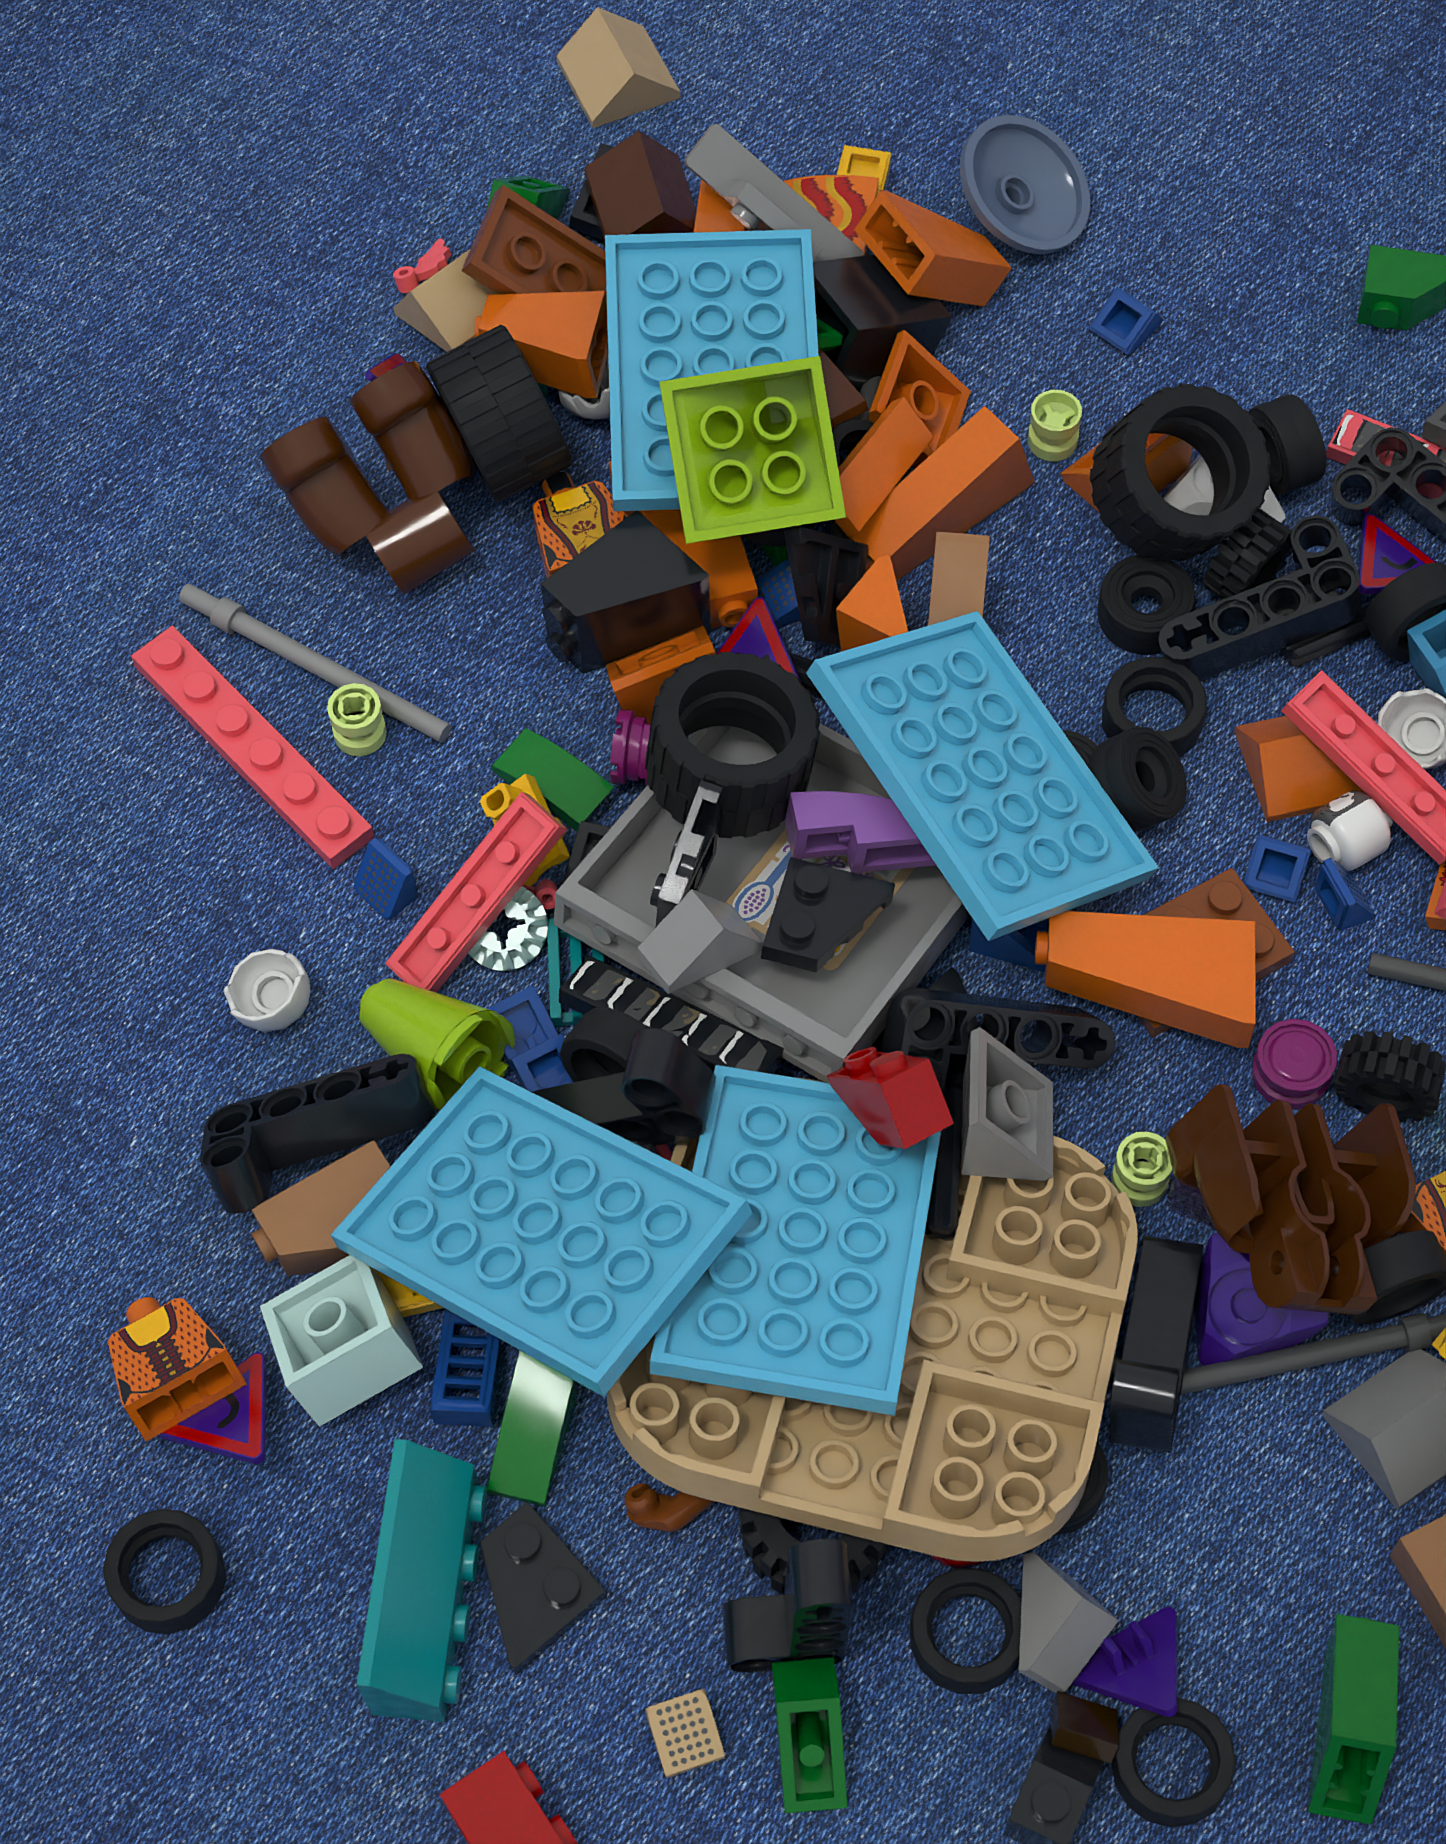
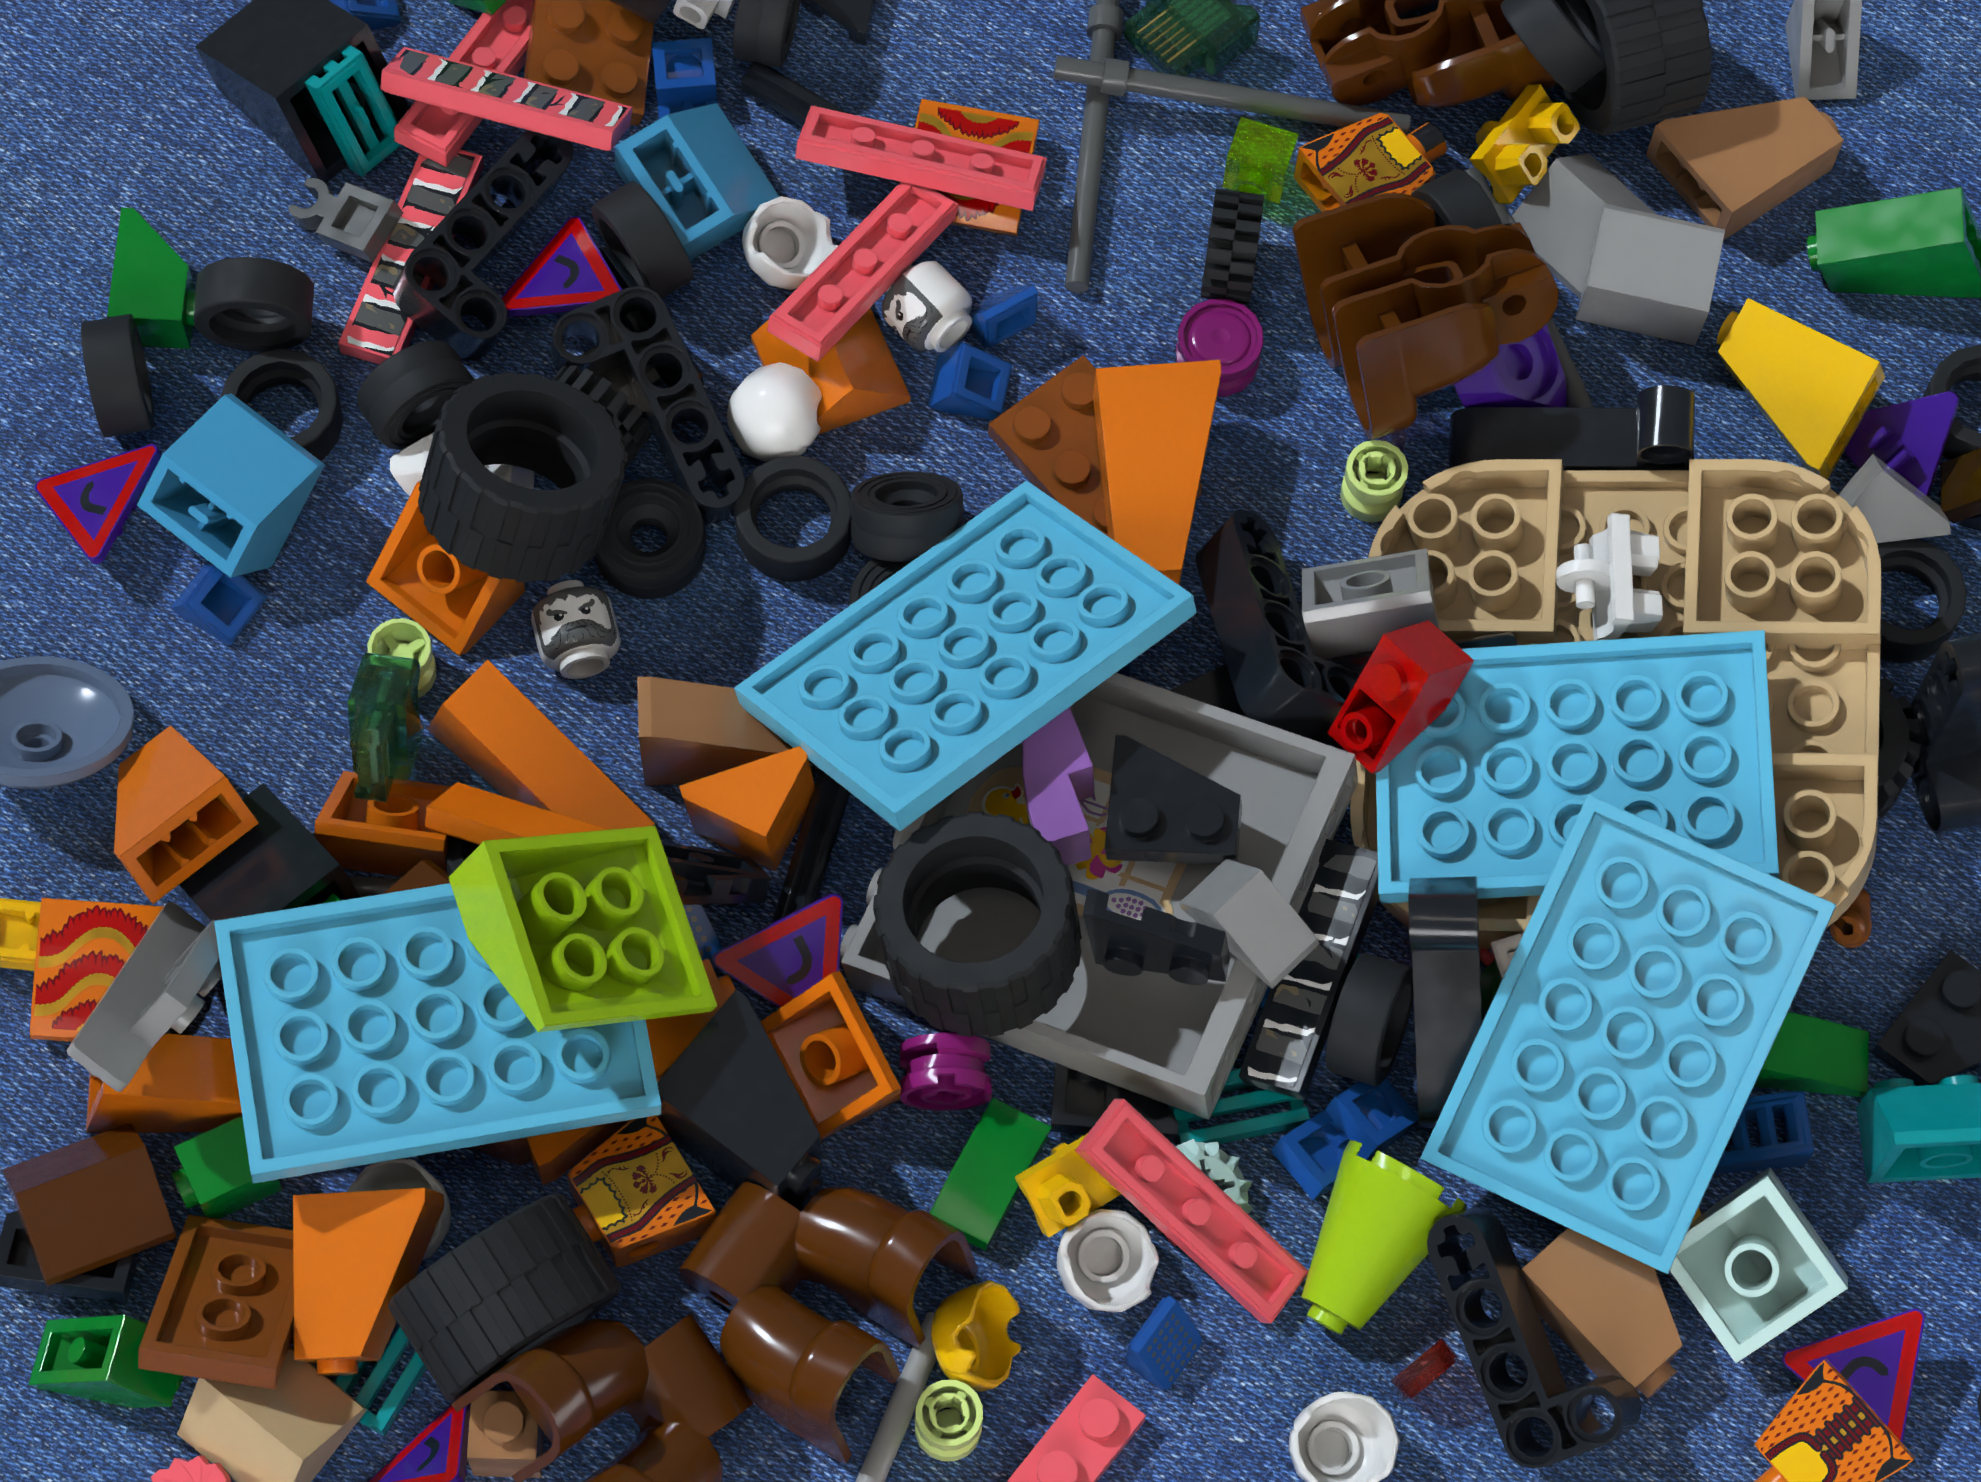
camera: 105 degrees left, 5 degrees up
(313, 1059) = (1425, 1369): none -> clear red tile
(413, 741) = (973, 1335): none -> yellow hair
(429, 613) = (843, 1239): none -> reddish brown piece
(448, 836) = (1107, 1261): none -> white hair
(959, 1309) = (1604, 579): none -> white hips
(975, 381) = (384, 723): none -> clear green piece
(1068, 544) = (575, 629): none -> head
(1205, 1571) = (1800, 381): none -> yellow slope
(1208, 313) = (232, 487): none -> dark azure slope
(1216, 239) = (98, 497): none -> piece
(1251, 697) = (774, 412): none -> white hair
(1287, 336) = (297, 369): none -> black tyre
(1314, 226) = (117, 375): none -> black tyre
(1336, 1442) = (1651, 274): none -> light grey slope
(1376, 340) = (253, 304): none -> black tyre

